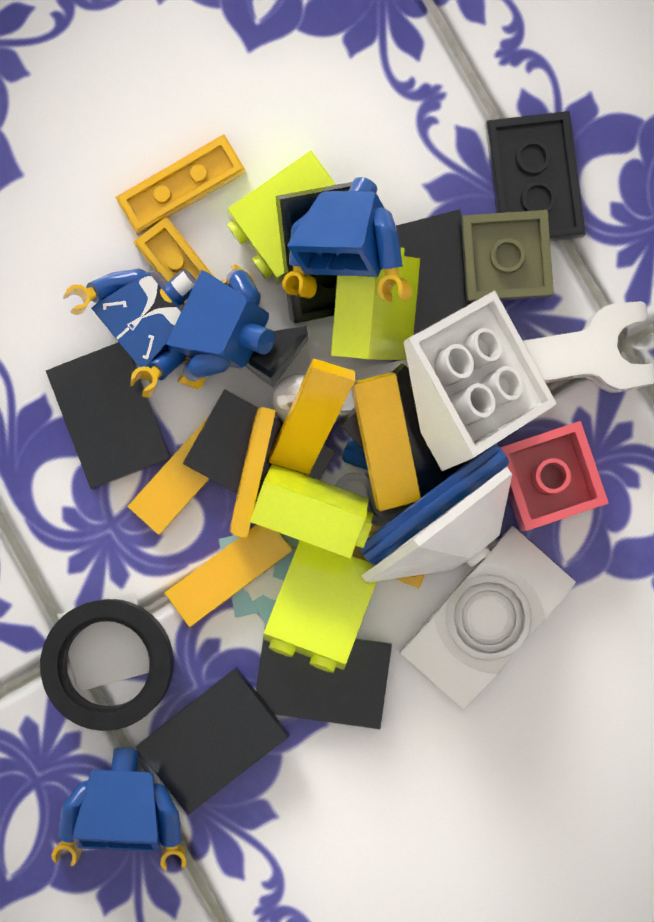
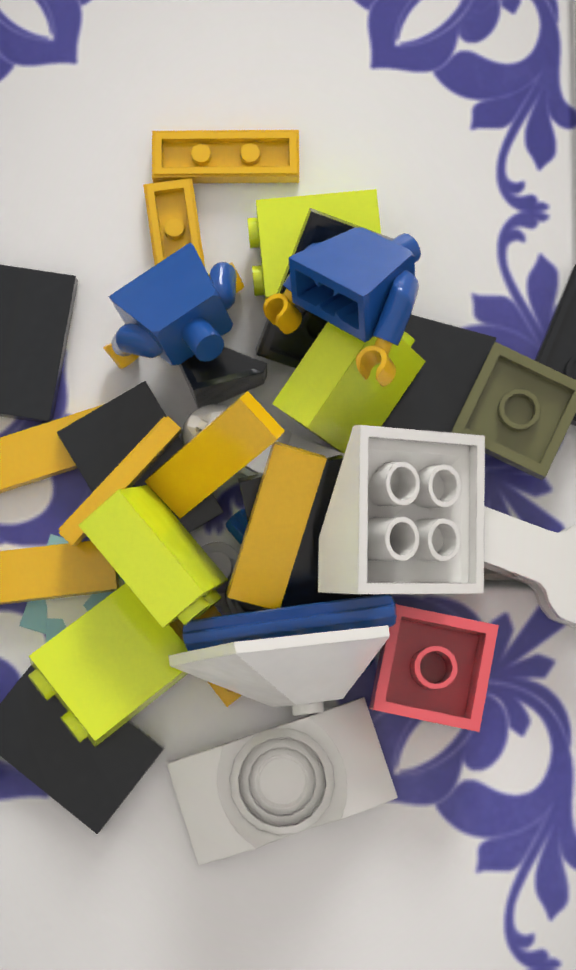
camera: 30 degrees right, 5 degrees down
(140, 314) = (101, 253): blue torso -> none

